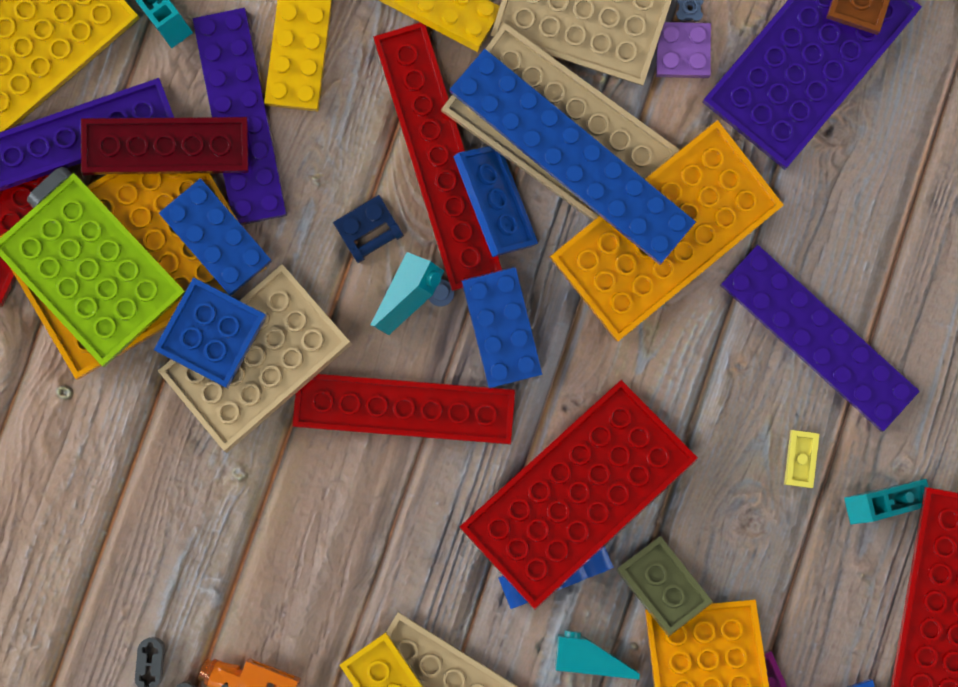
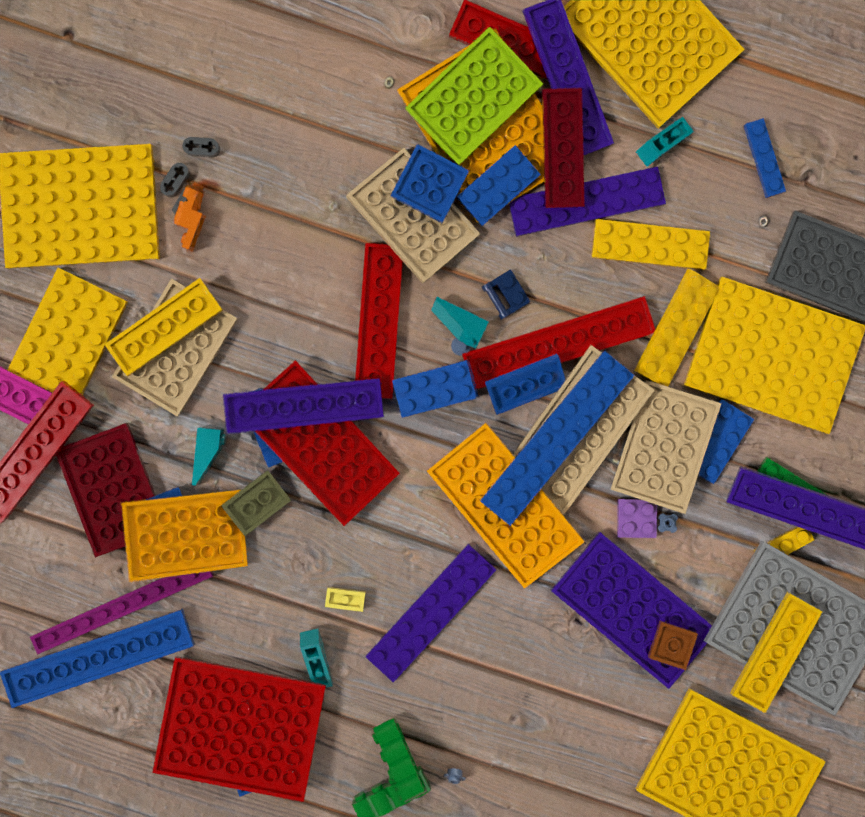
camera: 85 degrees right, 5 degrees up
(48, 185) = (530, 62): dark grey beam -> none
(525, 515) = (302, 406): none -> dark purple plate

